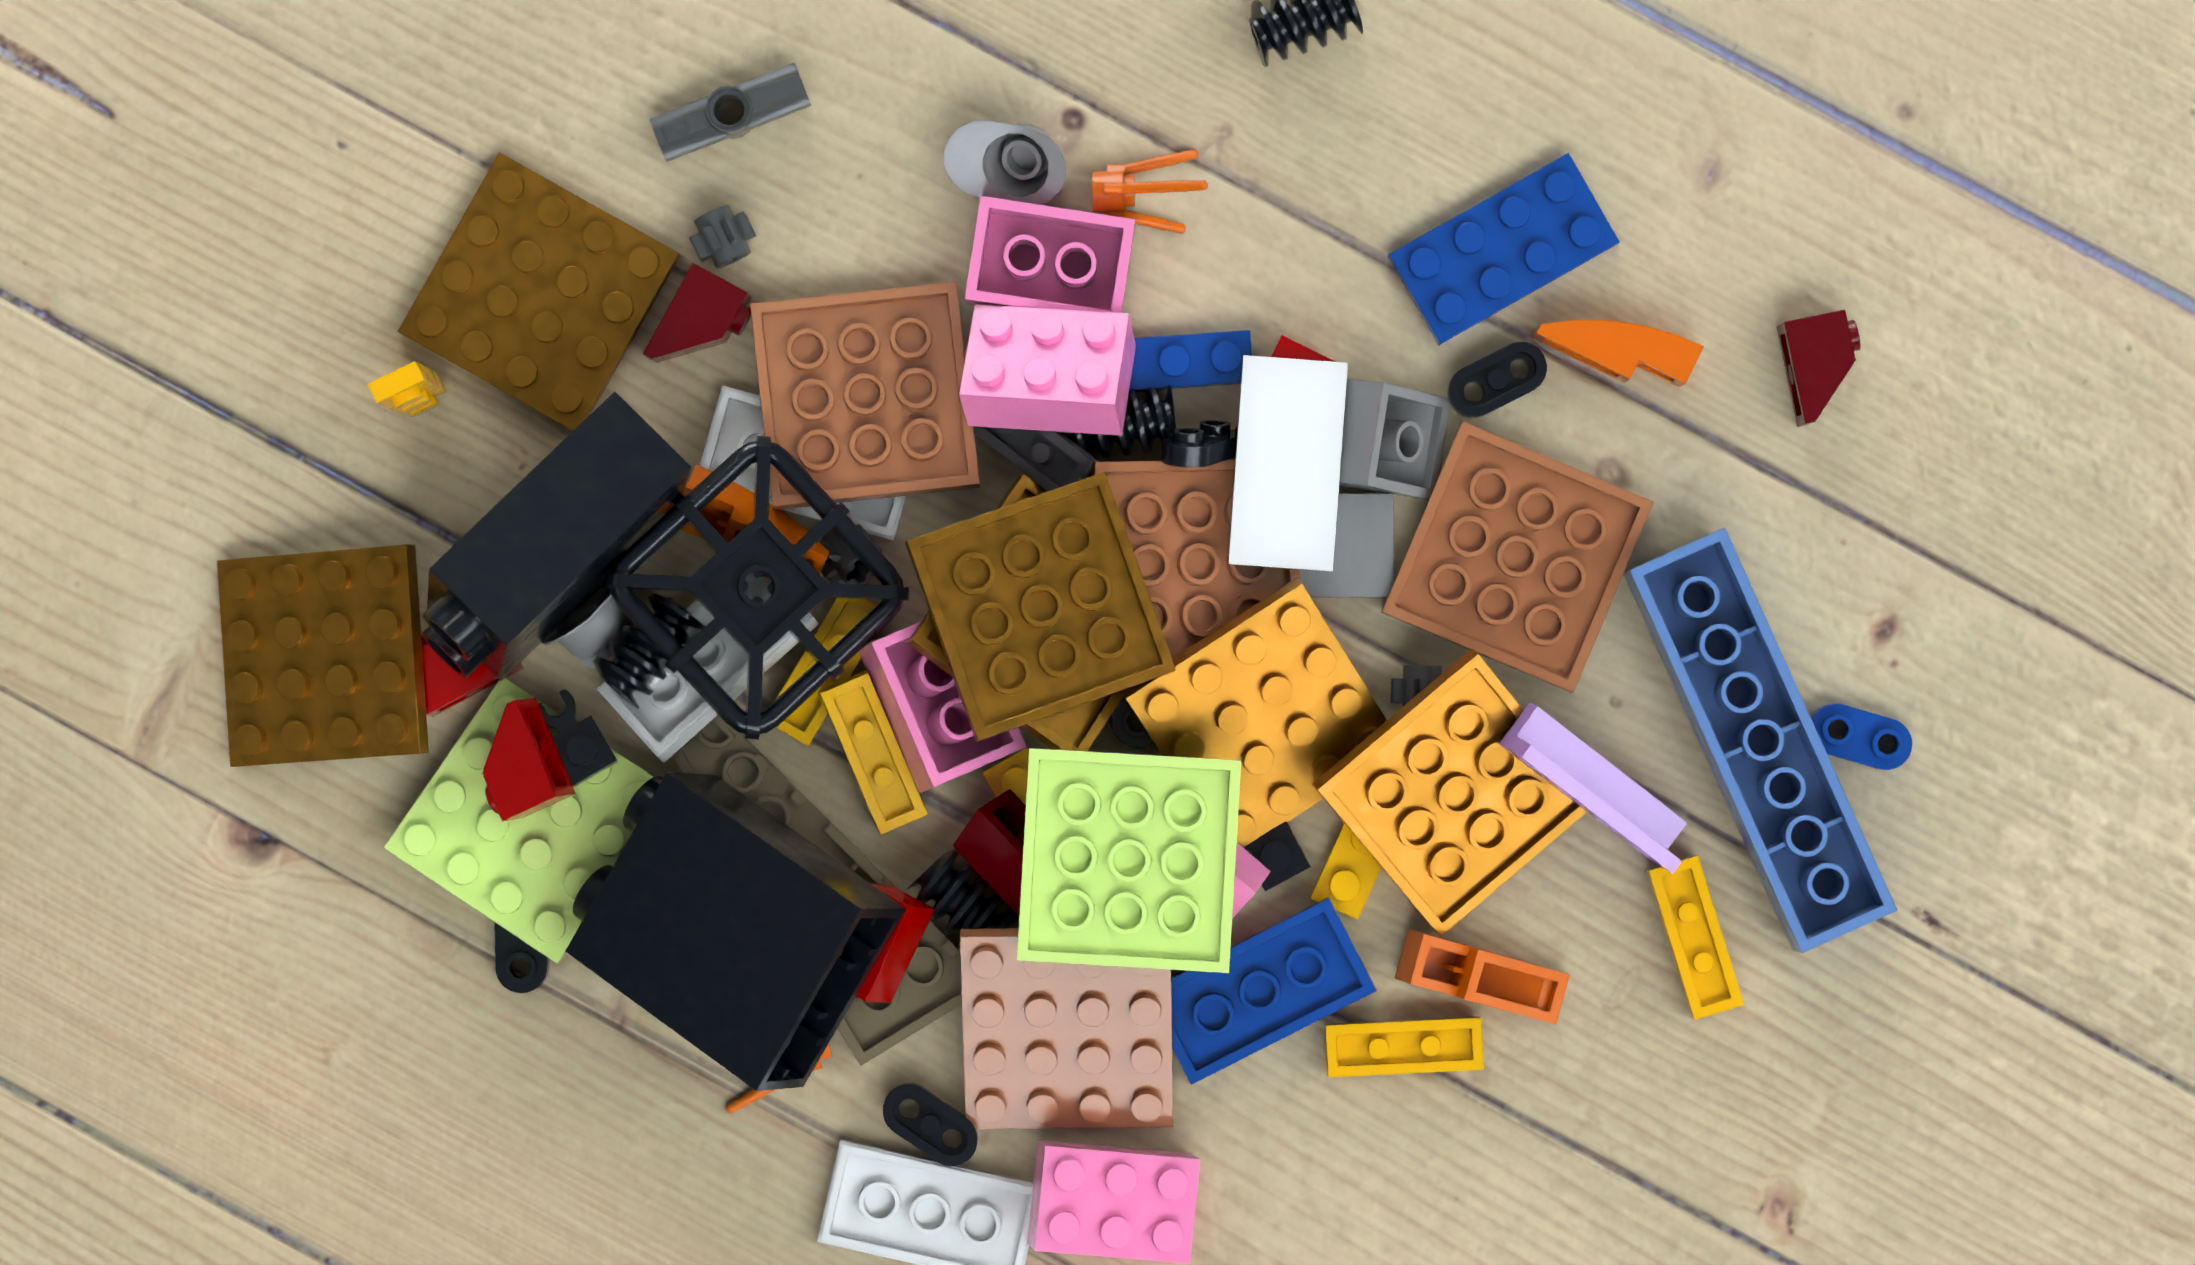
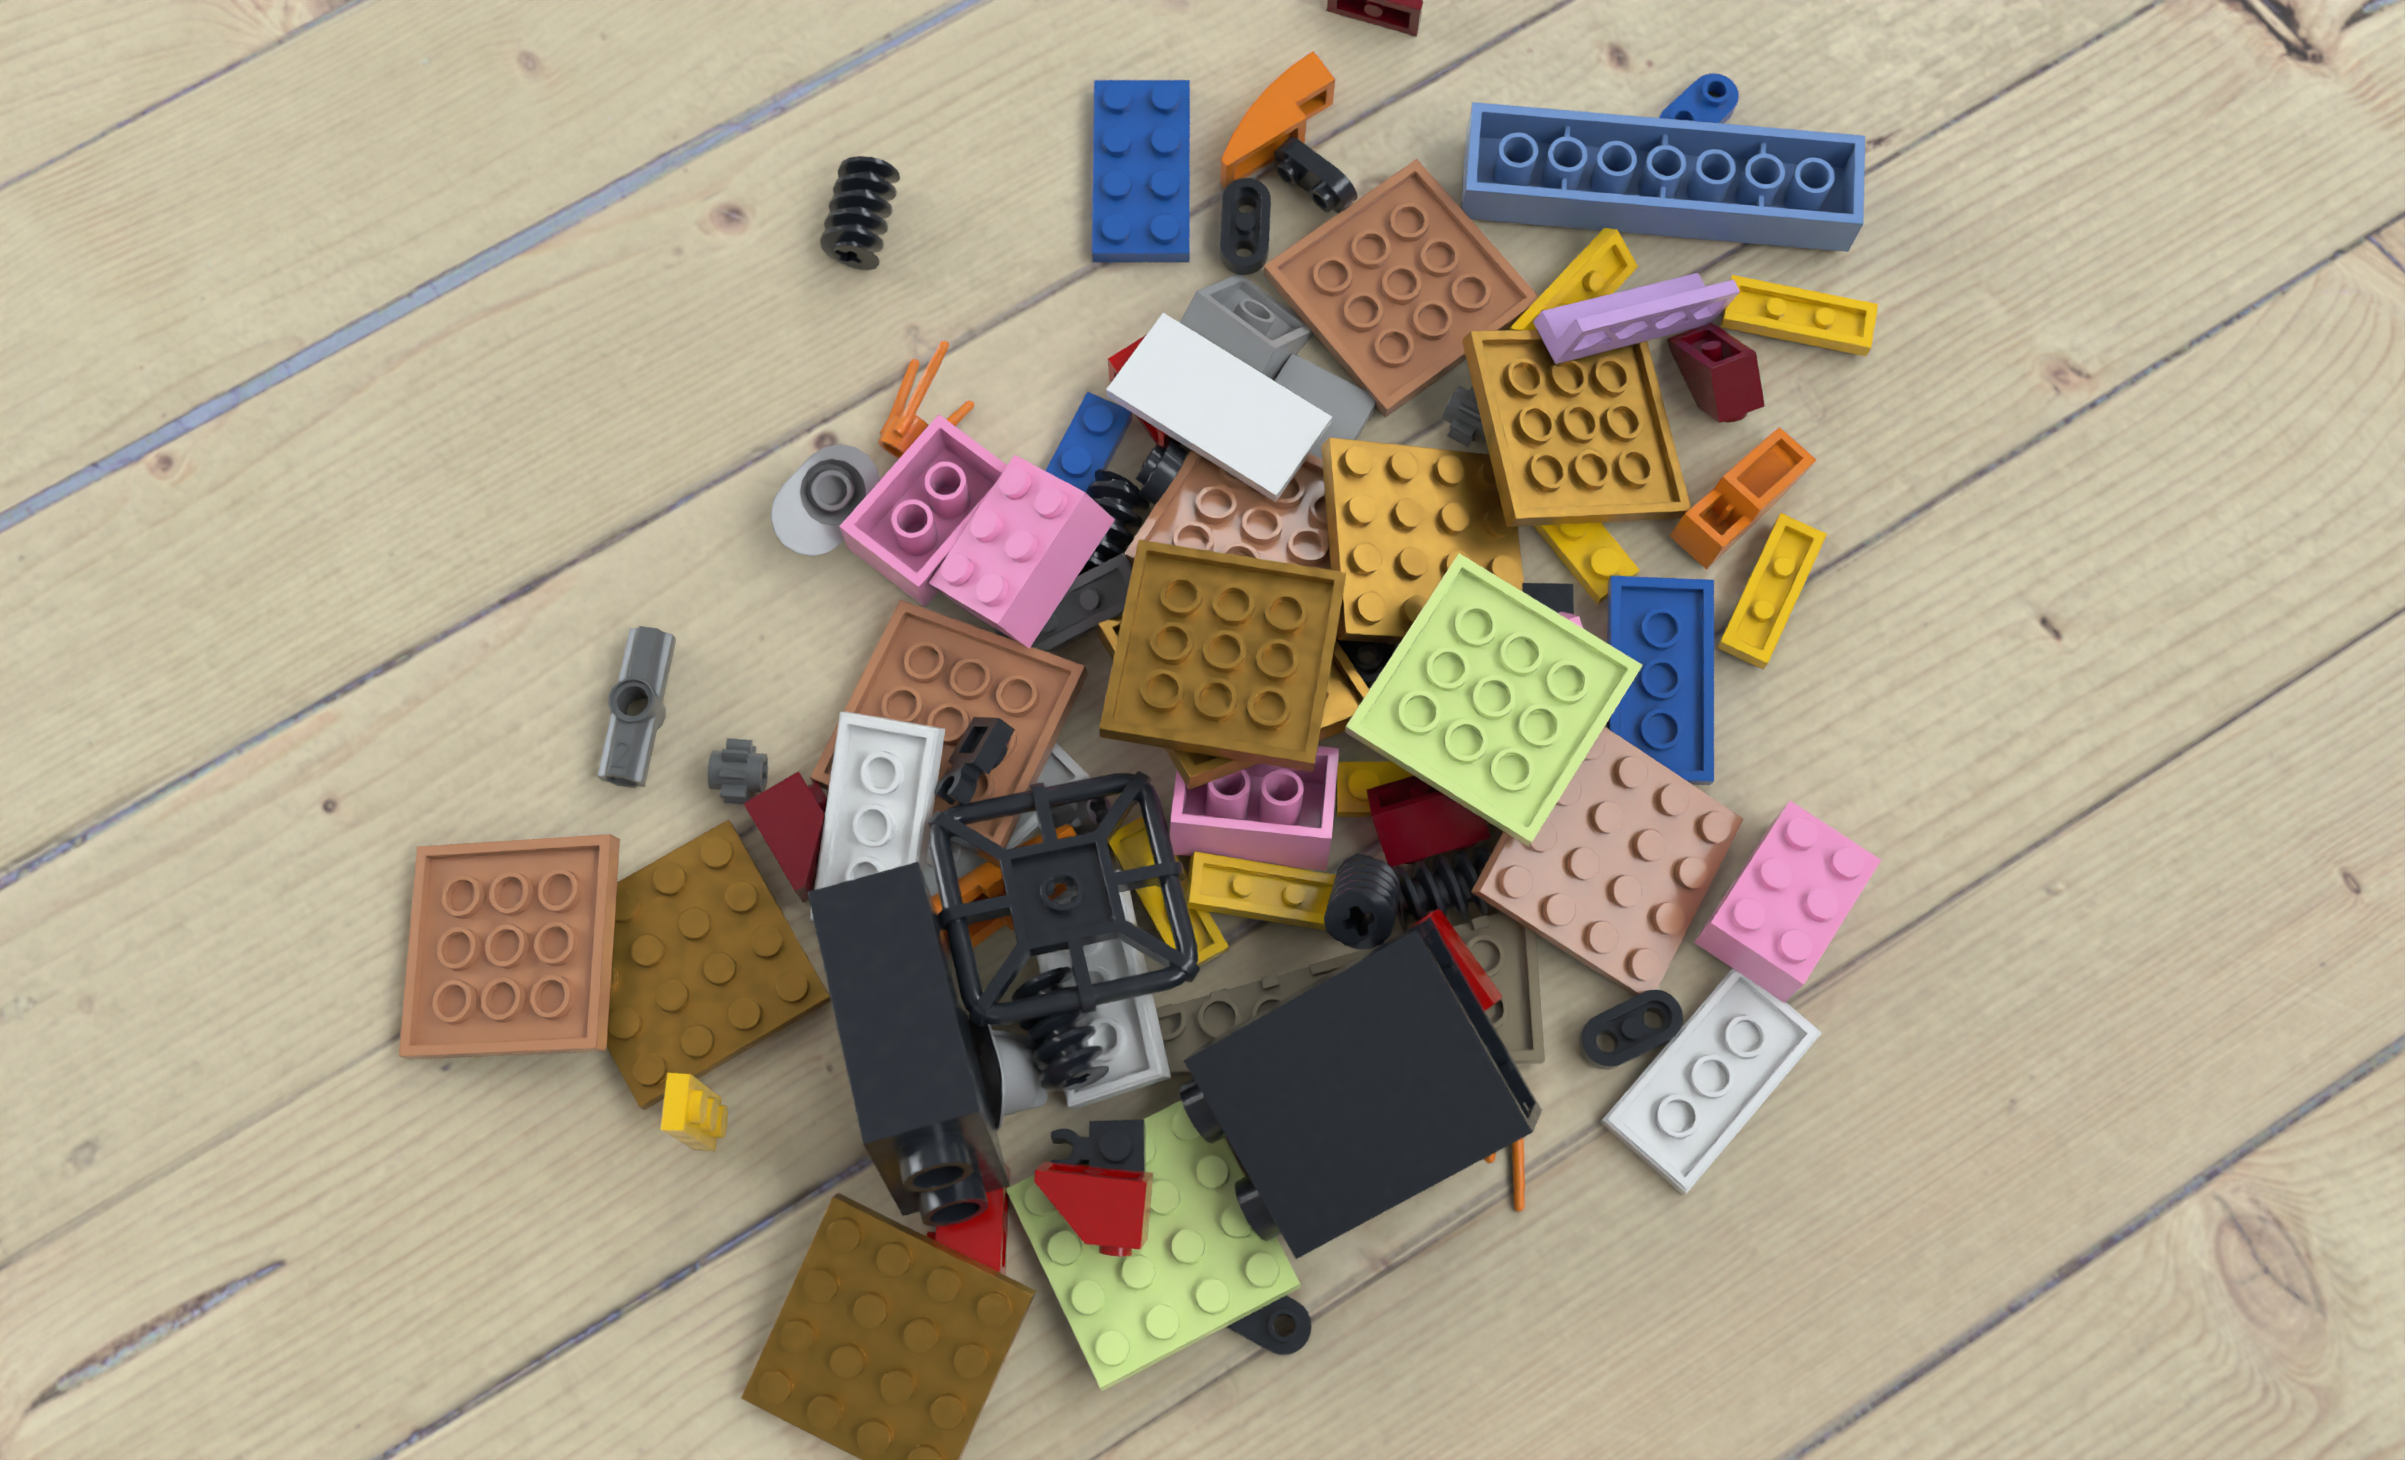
camera: 60 degrees left, 15 degrees down
(462, 142) = (510, 948): none -> nougat plate
(742, 385) = (878, 797): none -> white tile
(840, 440) = (977, 753): none -> black plate
(896, 842) = (1363, 902): none -> black piece
(1574, 436) = (1321, 179): none -> black plate
(1592, 890) = (1718, 372): none -> dark red slope
(1606, 722) = (1592, 274): none -> yellow plate

